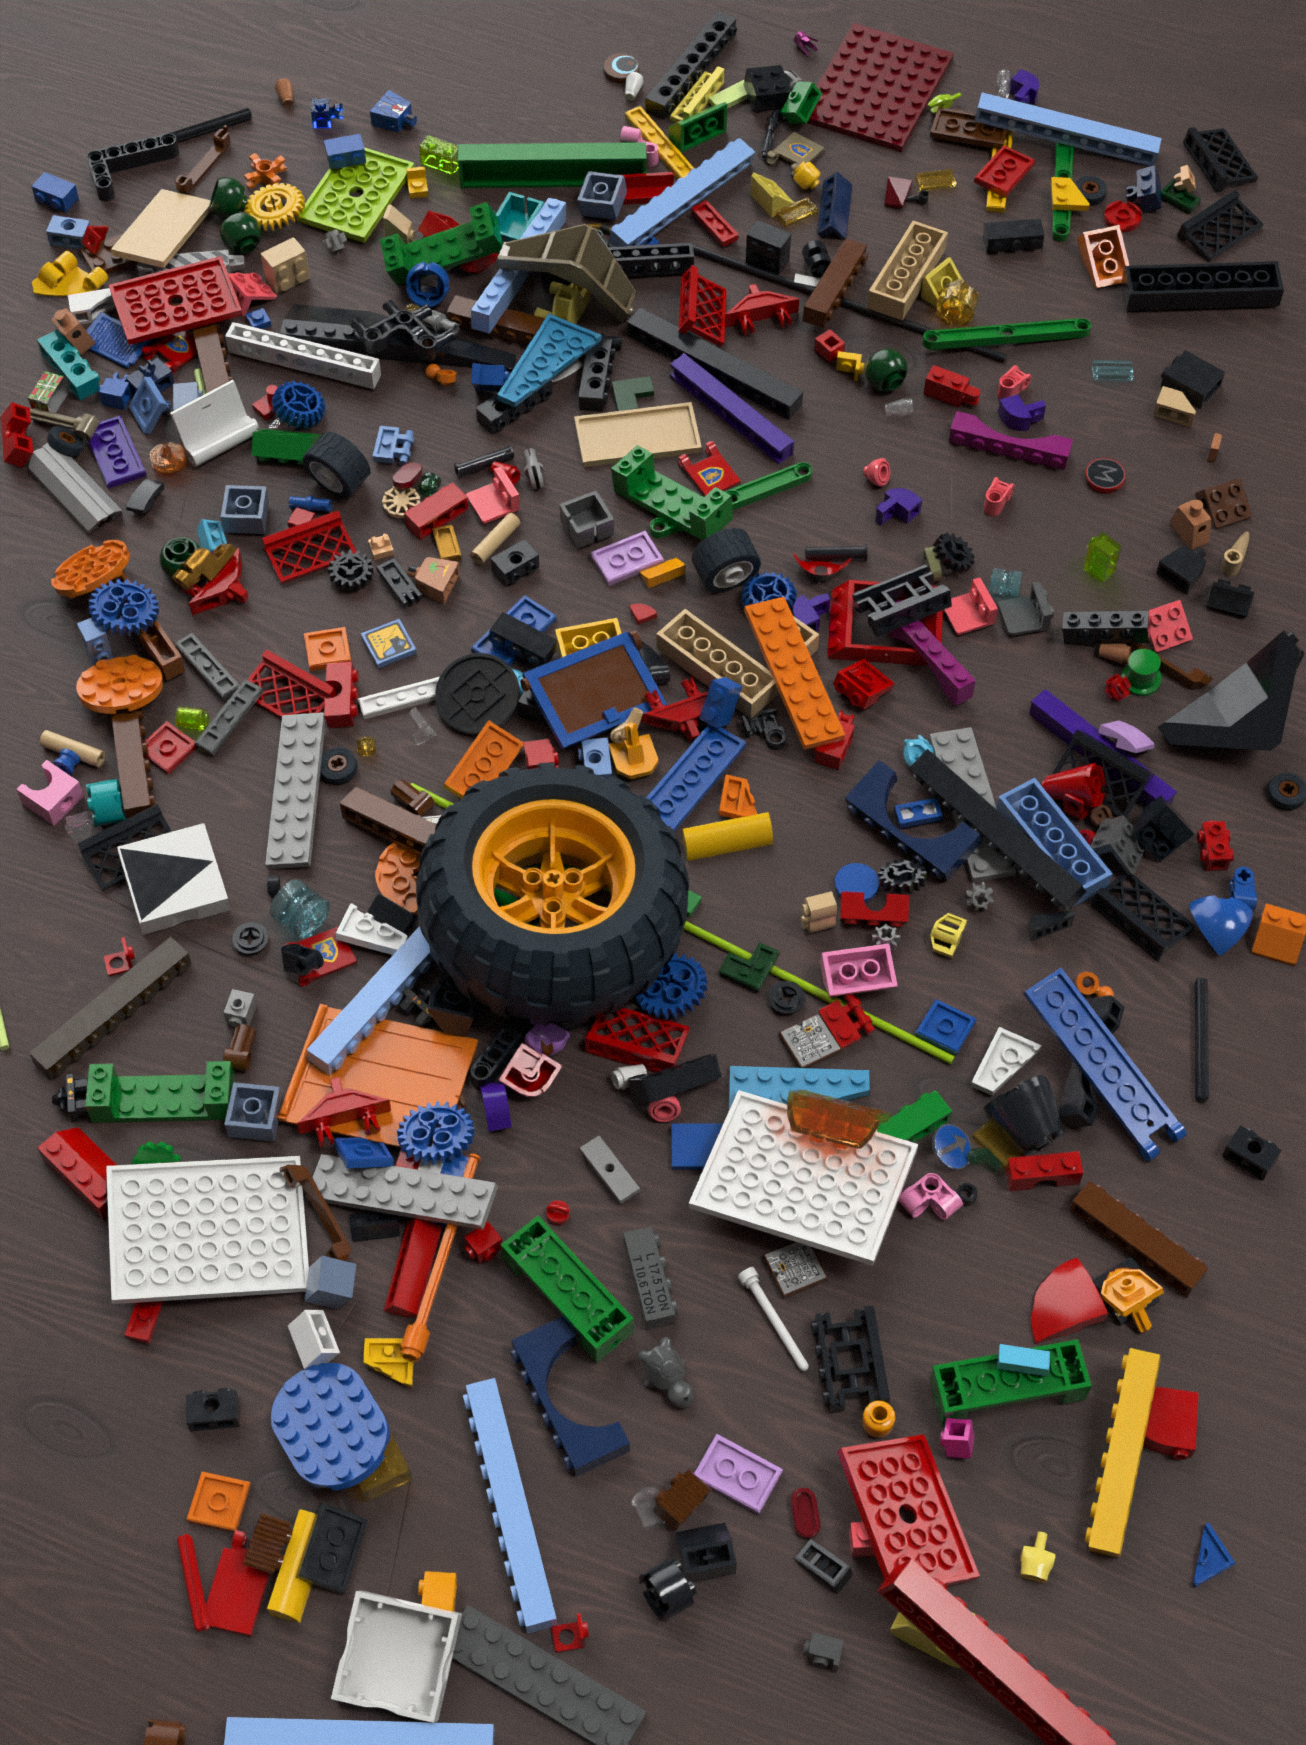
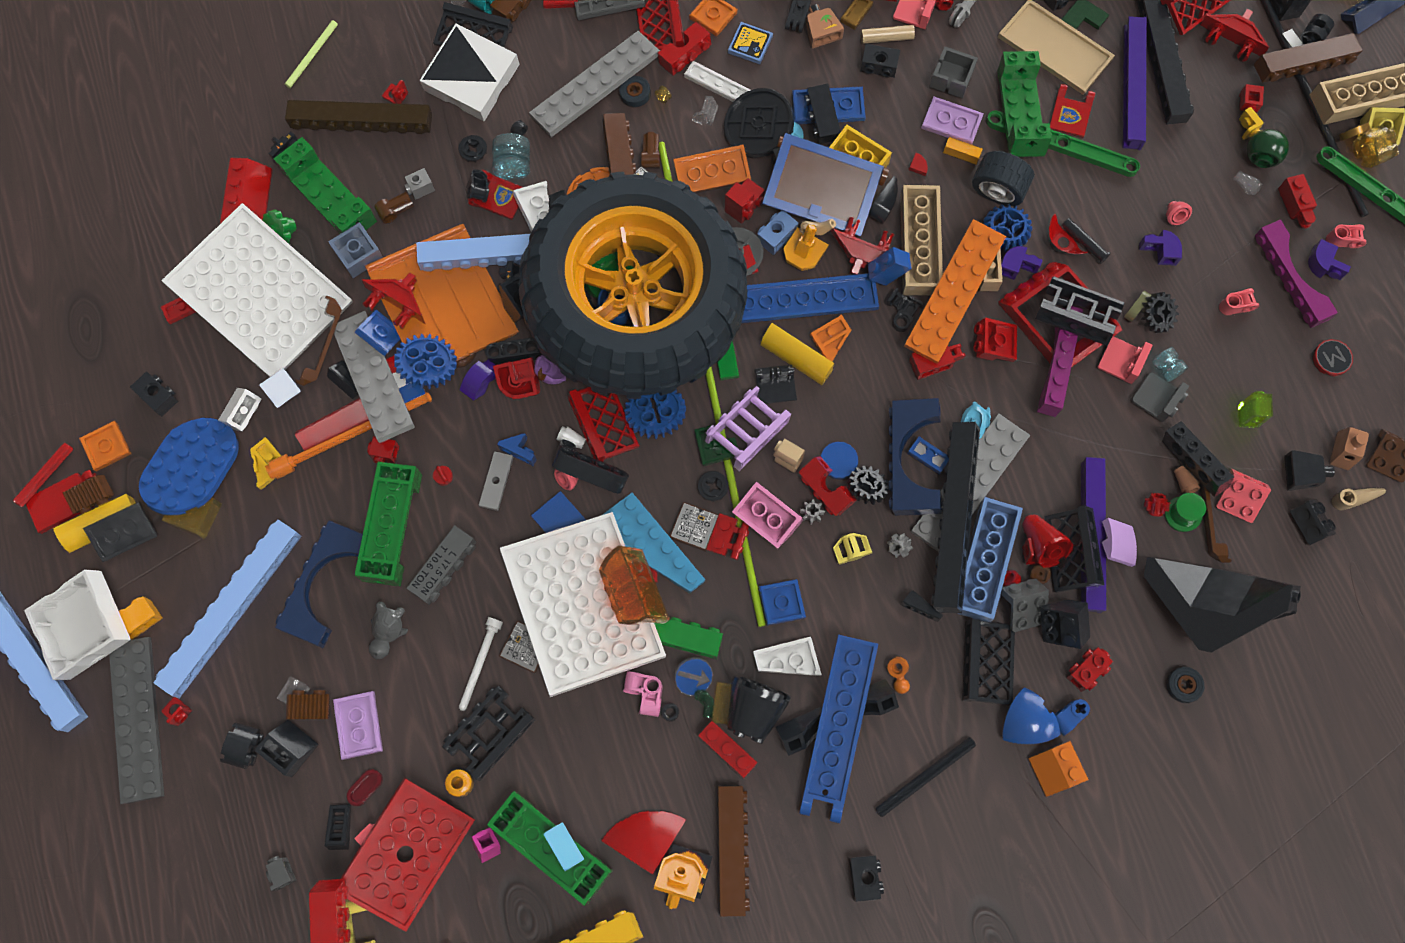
camera: 50 degrees right, 15 degrees up
(591, 1128) = (514, 446): none -> blue slope
(738, 875) = (776, 384): none -> black hinge
(779, 914) = (754, 444): none -> lavender fence
(930, 306) = (1355, 131): none -> pearl gold piece

